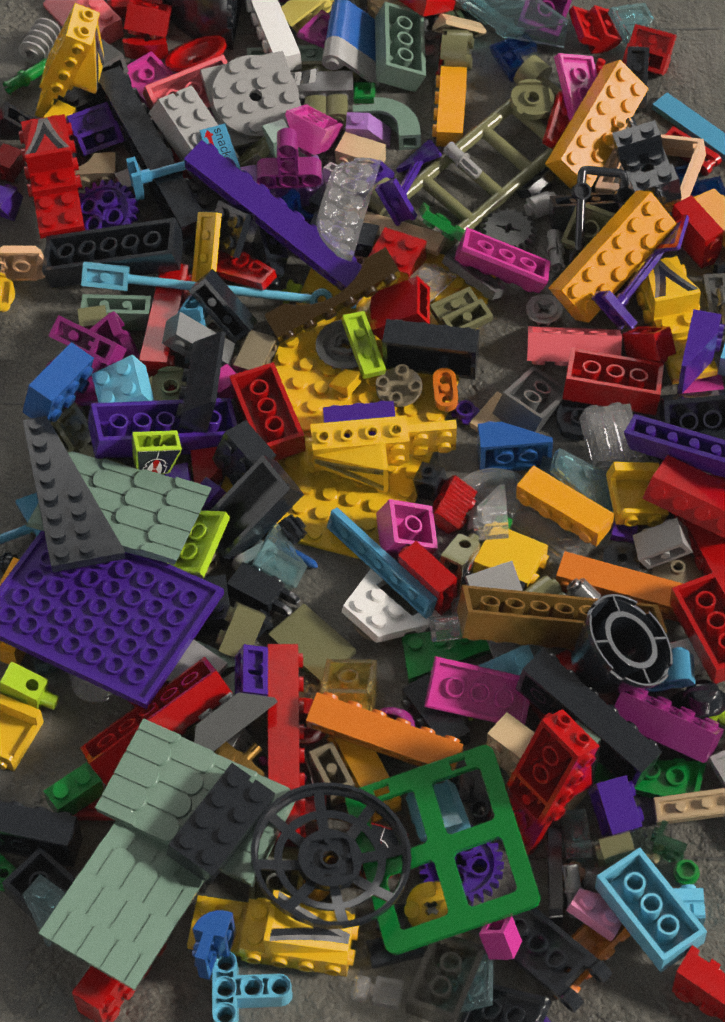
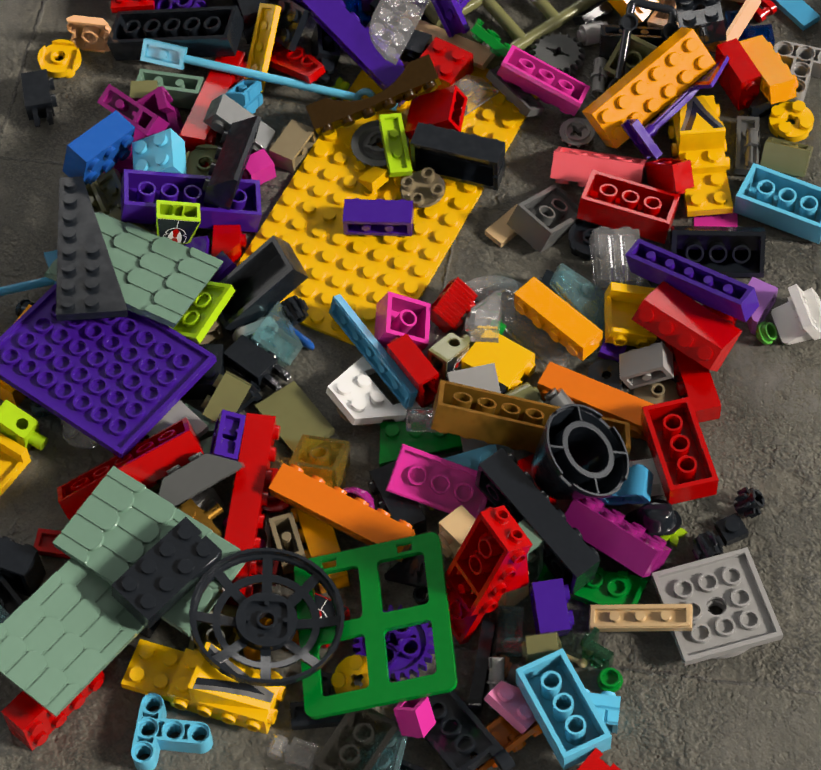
camera: 10 degrees right, 0 degrees up
(74, 790) = (41, 526): green brick -> none
(213, 937) = (143, 678): blue brick -> none
(223, 306) = (269, 93): black brick -> none
(240, 451) = (256, 227): black brick -> none
(268, 409) = (292, 198): red brick -> none
(366, 456) = (378, 249): yellow wedge -> none
(429, 480) = (434, 279): black brick -> none
(446, 391) = (466, 198): orange plate -> none
(450, 807) = (392, 588): medium azure slope -> none
(461, 310) = (495, 123): olive brick -> none
(465, 406) = (479, 215): dark purple plate -> none
(510, 446) = (517, 257): blue slope -> none
(702, 342) = (715, 183): dark purple slope -> none

